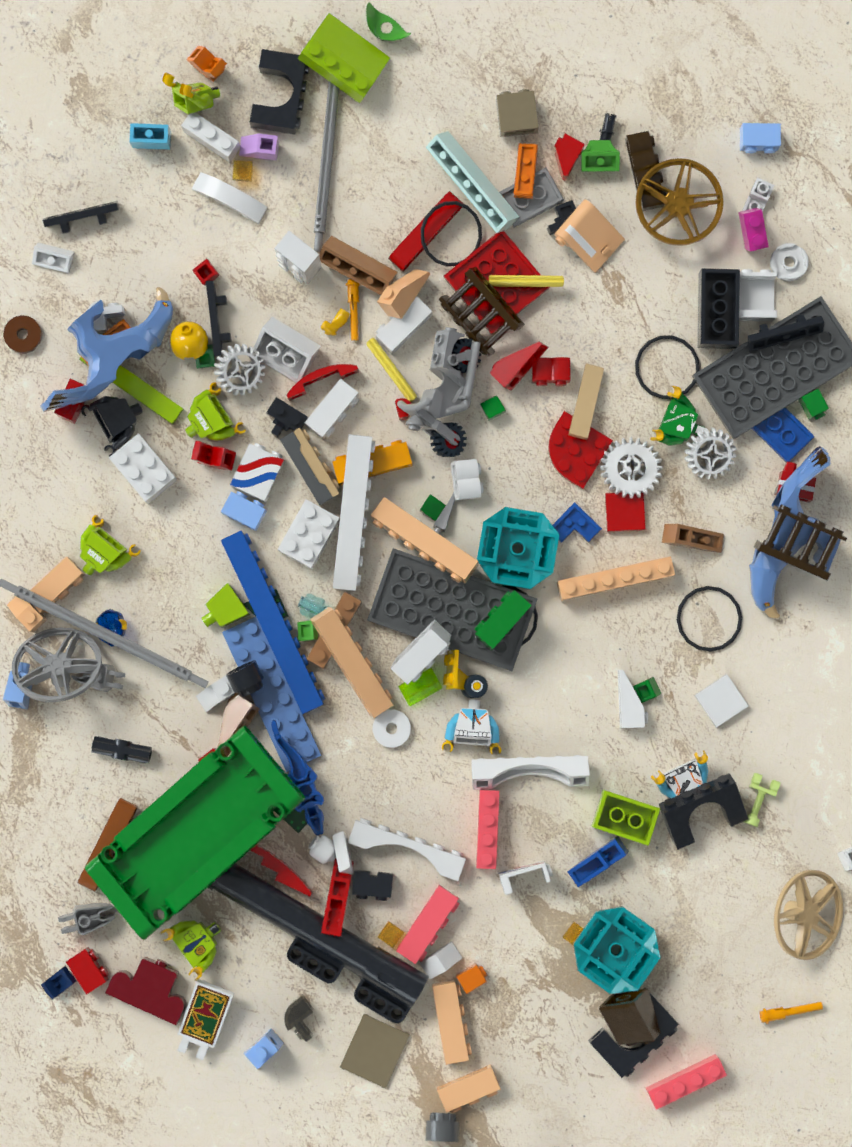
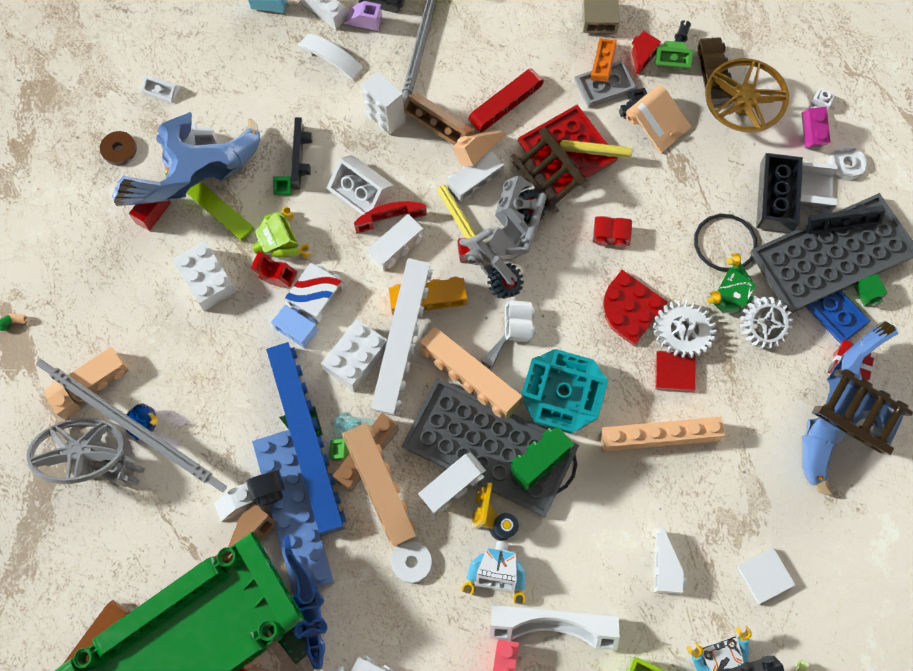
camera: 10 degrees right, 15 degrees down
(13, 695) = (26, 479): light blue torso -> none
(65, 218) = (208, 52): black hinge -> none
(102, 551) = (149, 347): lime torso -> none
(115, 419) = (186, 227): black torso -> none
(121, 749) = (125, 549): black piece -> none
(188, 340) = (269, 165): yellow cylinder -> none
(205, 272) = (297, 110): red brick -> none
(224, 608) = (259, 417): lime torso -> none
(242, 170) = (345, 35): clear yellow plate -> none
(247, 382) = (311, 188): white gear -> none
(285, 417) = (349, 246): black hinge -> none
(309, 465) = (366, 291): piece -> none
(338, 321) = (413, 167): yellow arm -> none
(353, 297) = (430, 150): light orange pin -> none
(422, 688) = (447, 522): clear neon green slope -> none
(425, 222) = (522, 75): black piece -> none
(432, 507) = (481, 344): green slope -> none
(472, 182) = (554, 62): light aqua brick -> none
(492, 407) = (552, 260): green slope -> none
(514, 366) = (578, 221): red slope -> none
(576, 519) = (627, 374): blue tile -> none
(586, 401) = (644, 262): tan tile -> none
(647, 690) = (687, 554): green slope -> none
(692, 538) = (743, 403): medium nougat slope -> none
(738, 612) = (739, 513): black piece -> none
(760, 137) = (823, 54): light blue brick -> none

